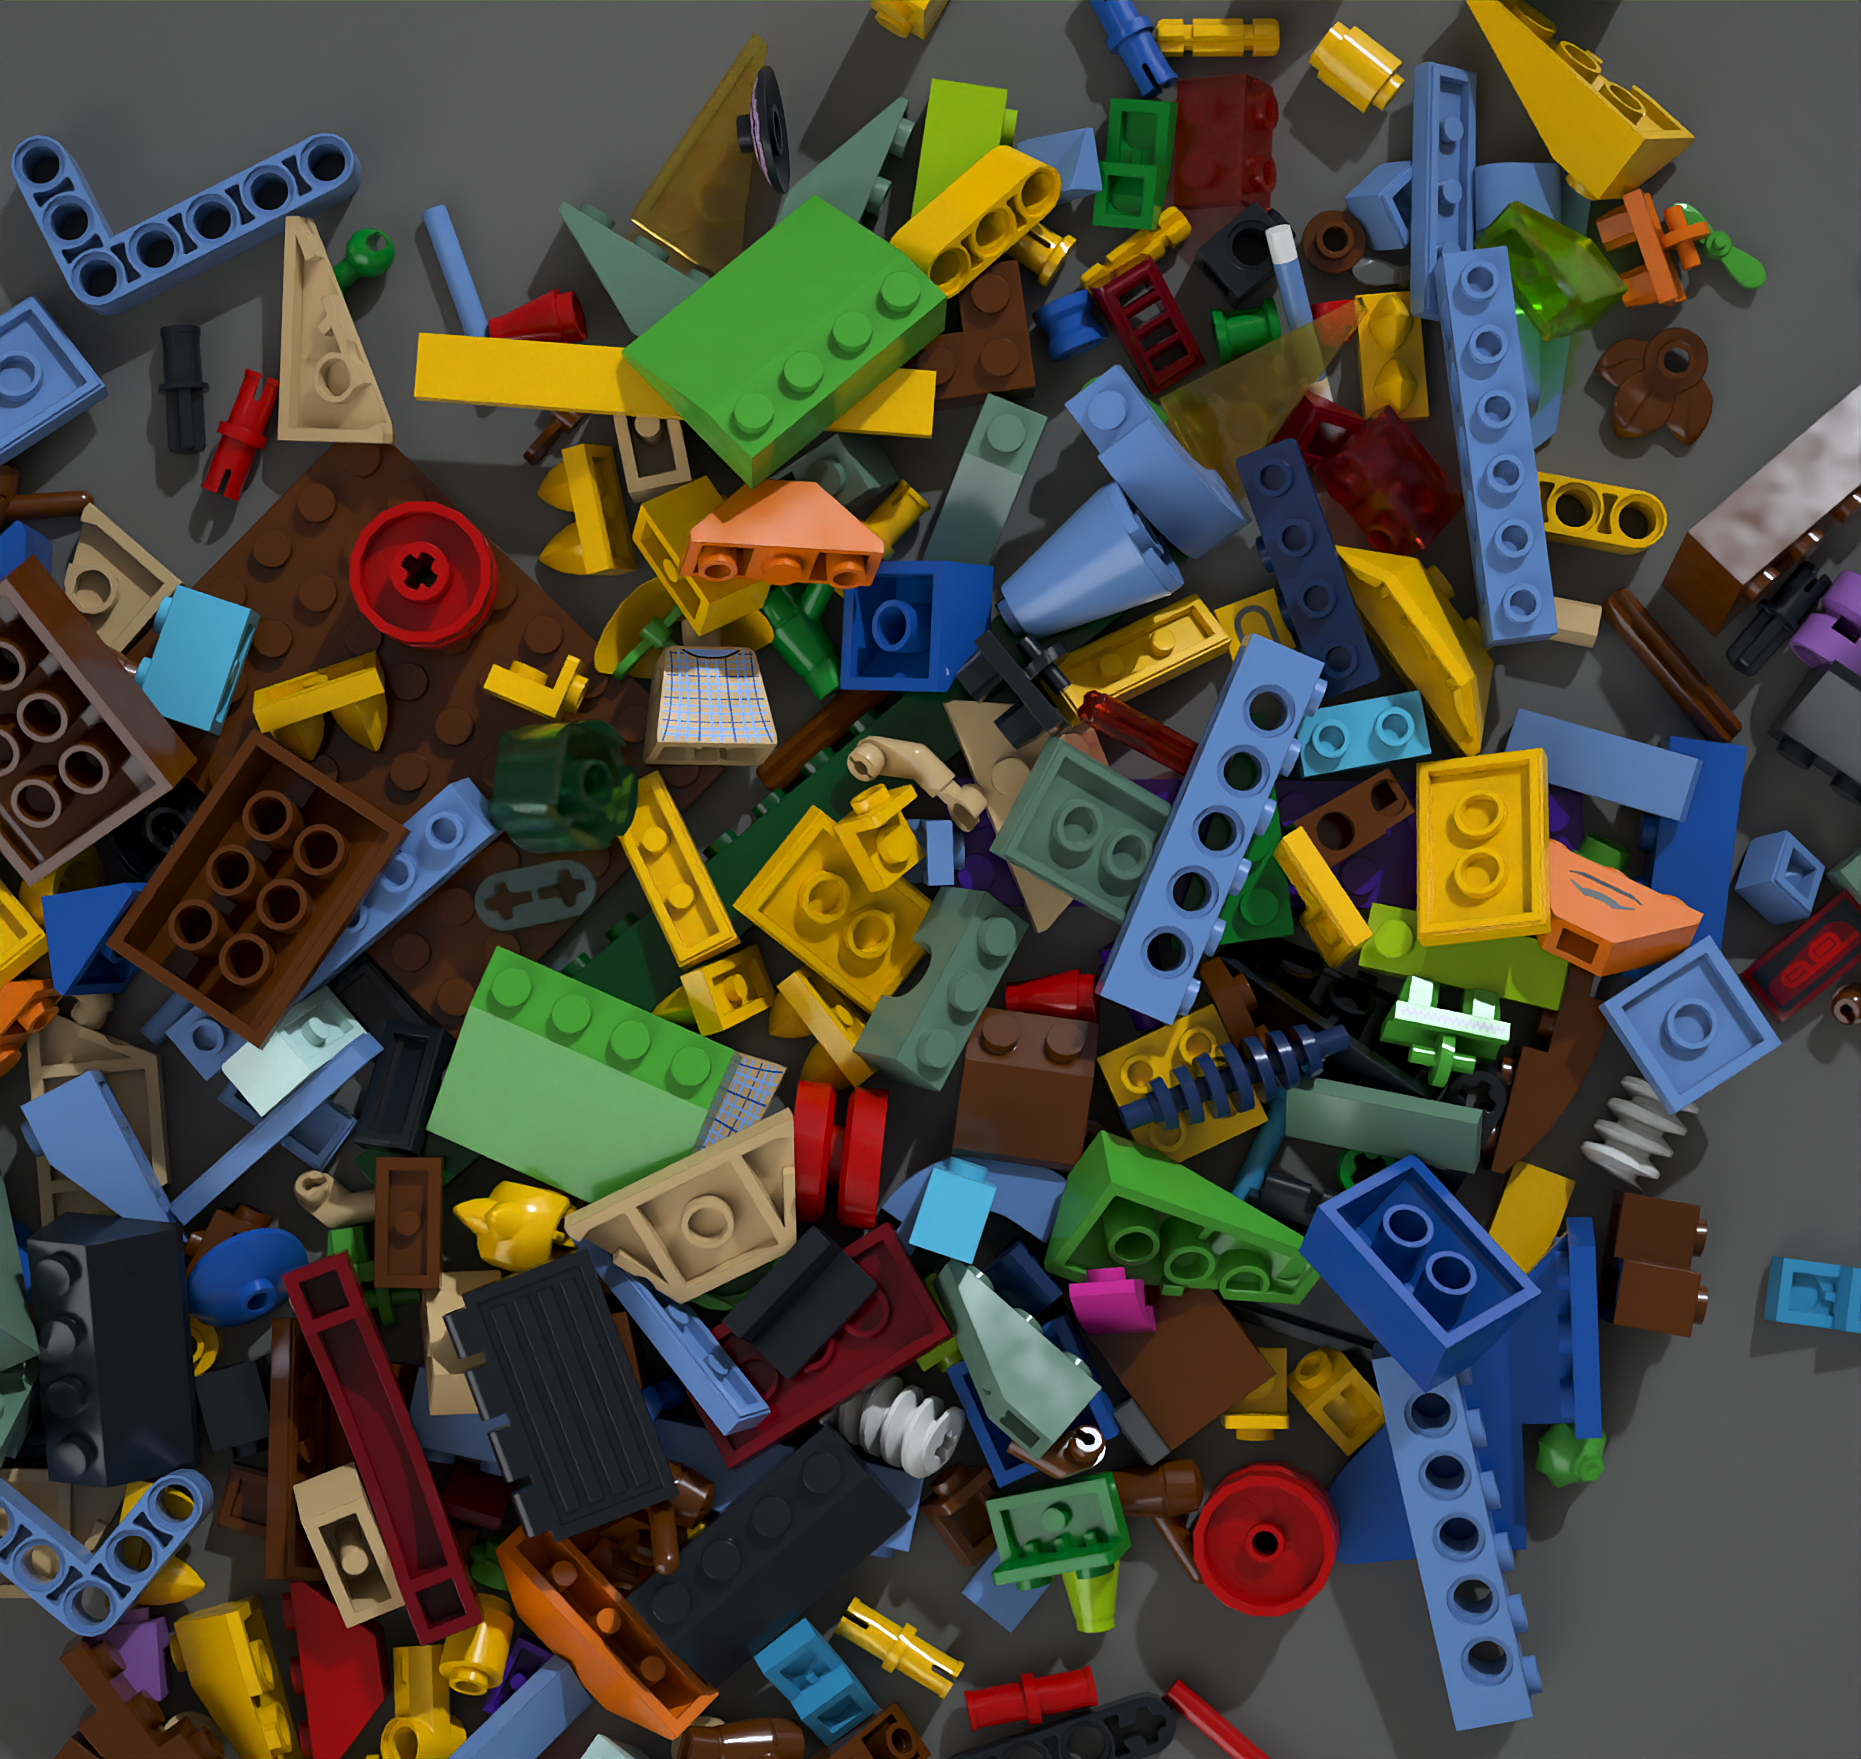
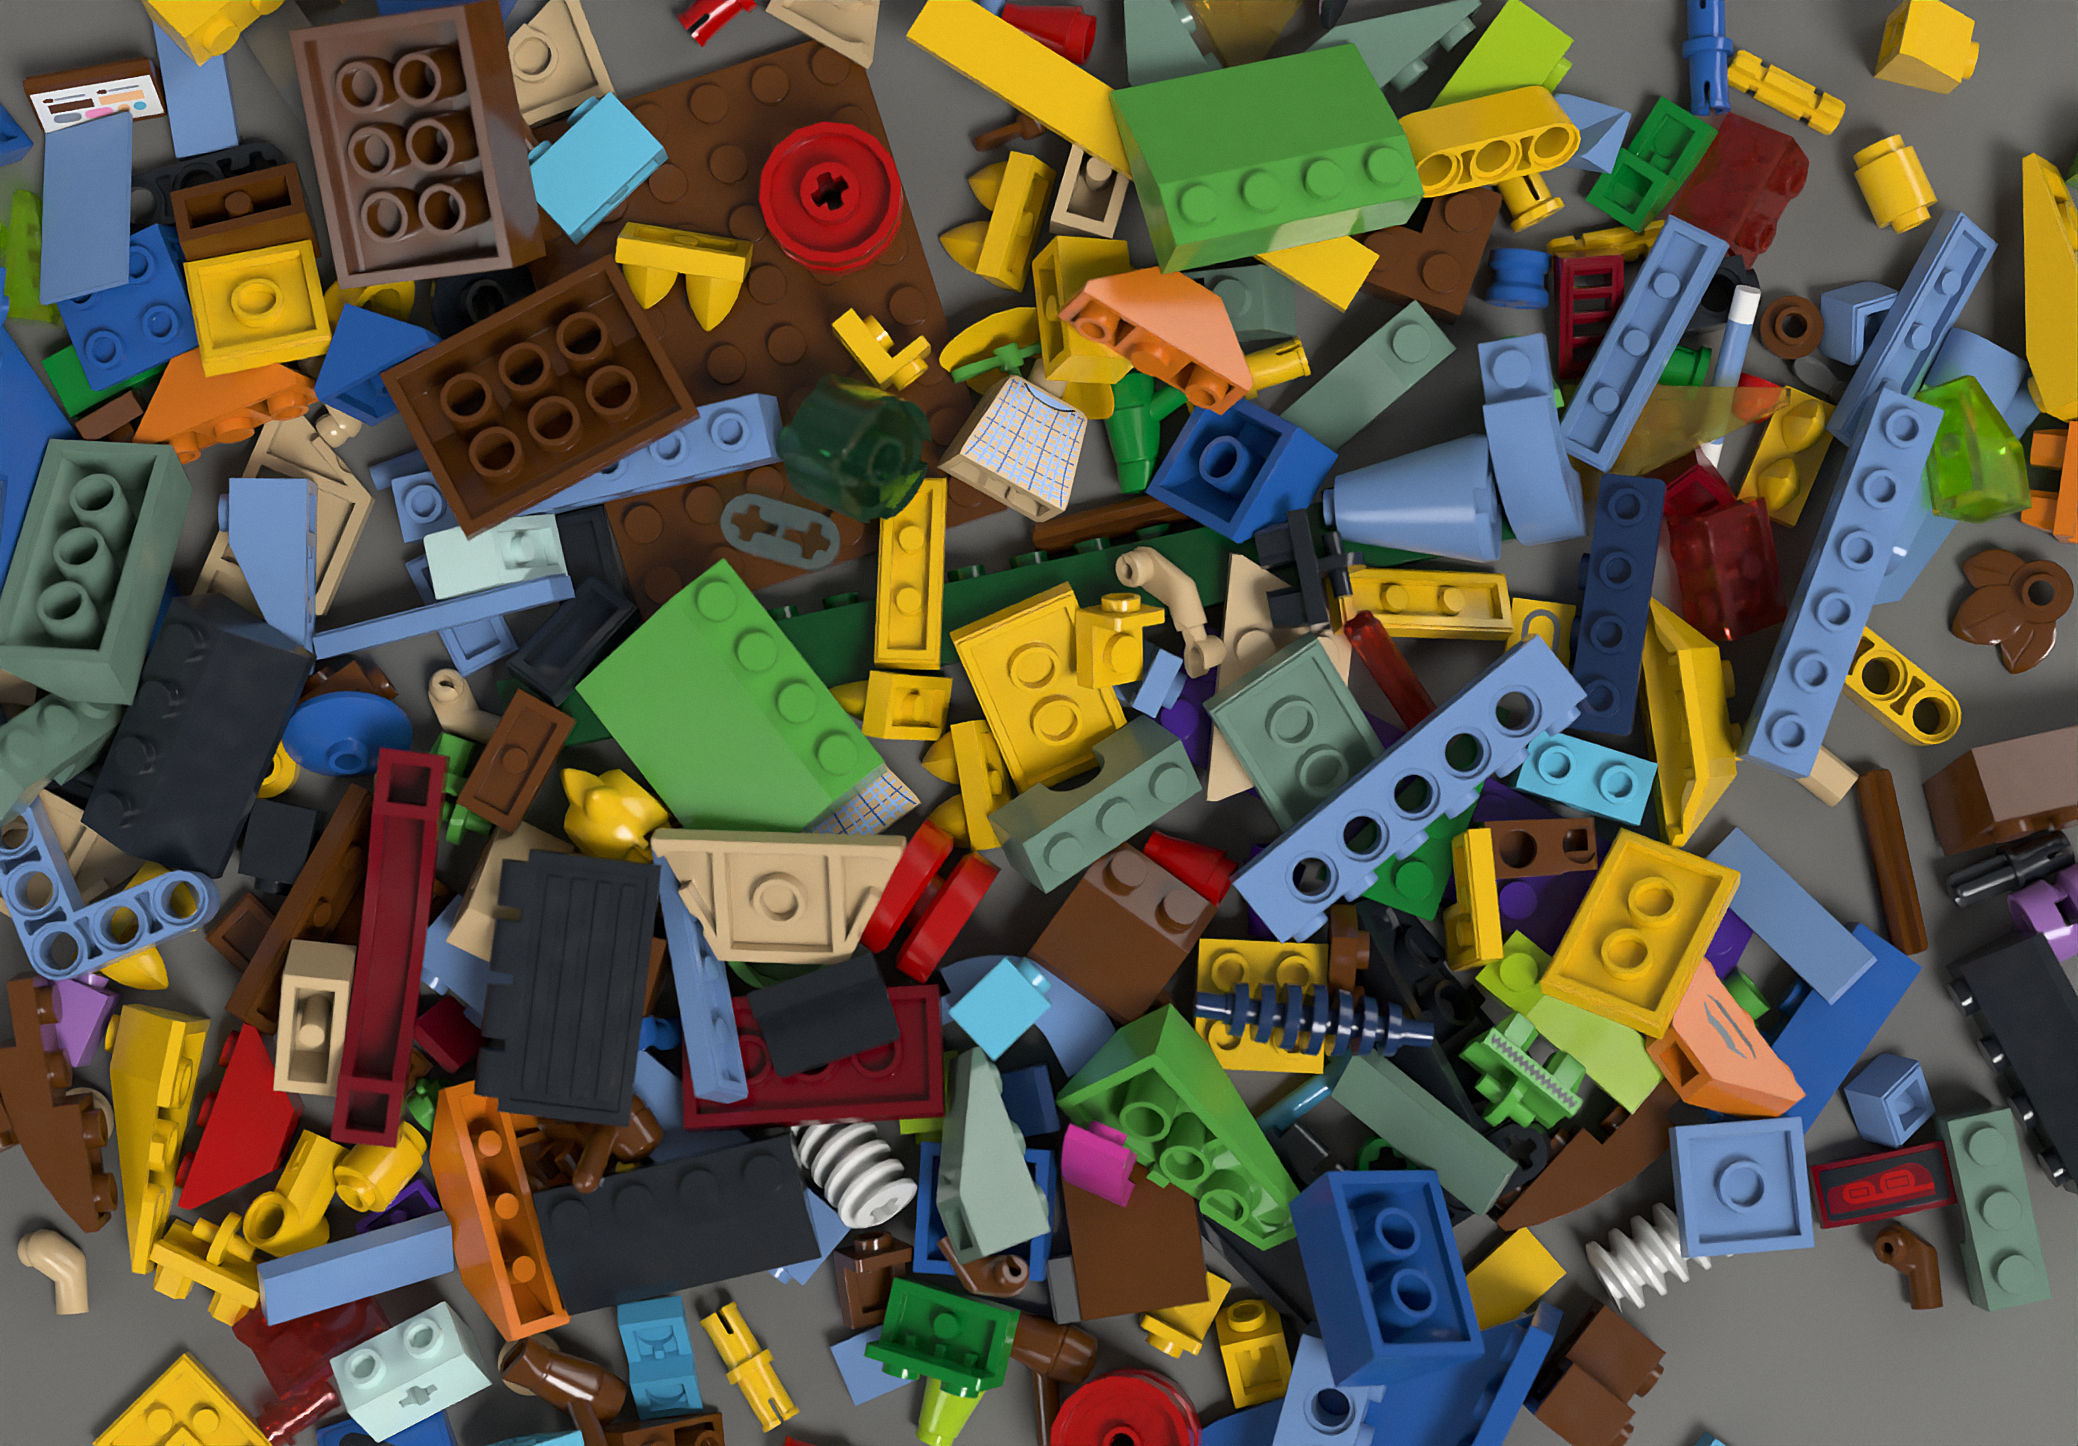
camera: 25 degrees right, 0 degrees up
(1207, 326) = (1640, 342): none -> medium blue tile

